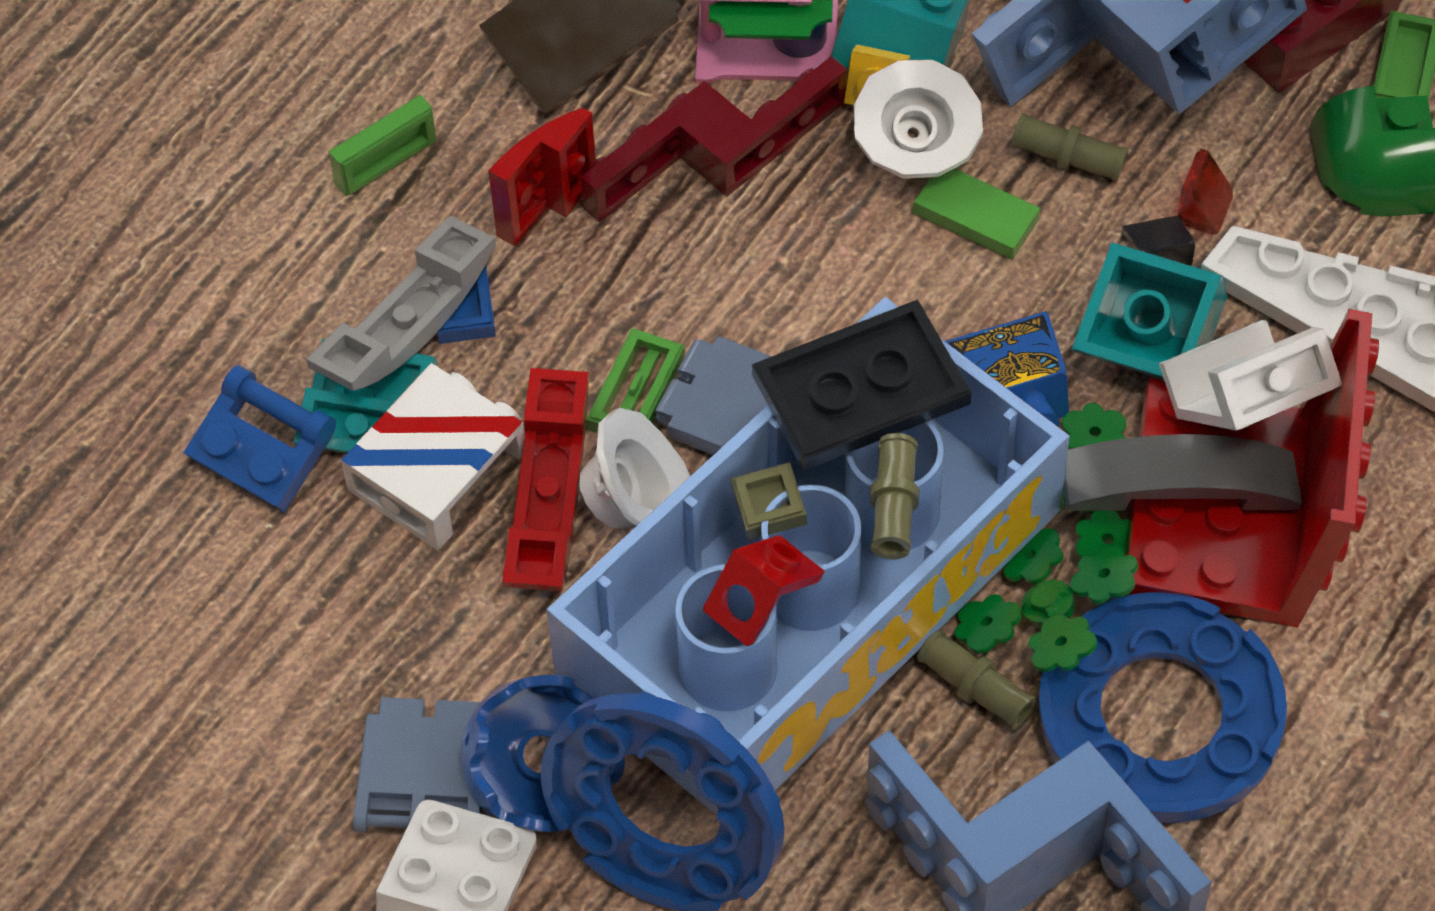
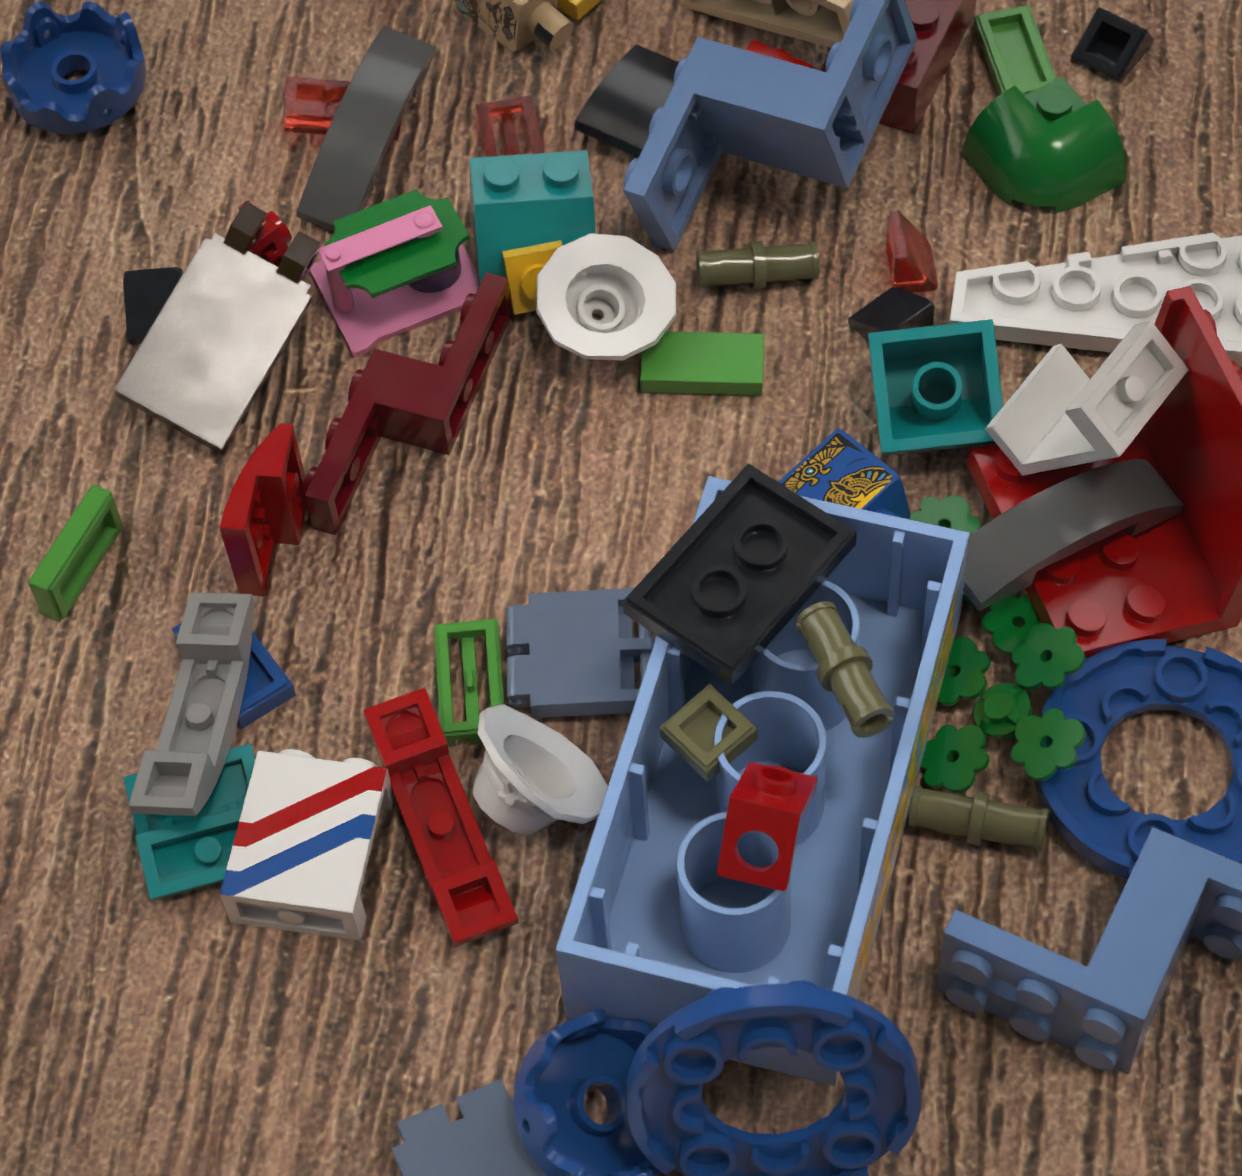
camera: 25 degrees left, 0 degrees up
(251, 455) = (110, 933): blue plate -> none

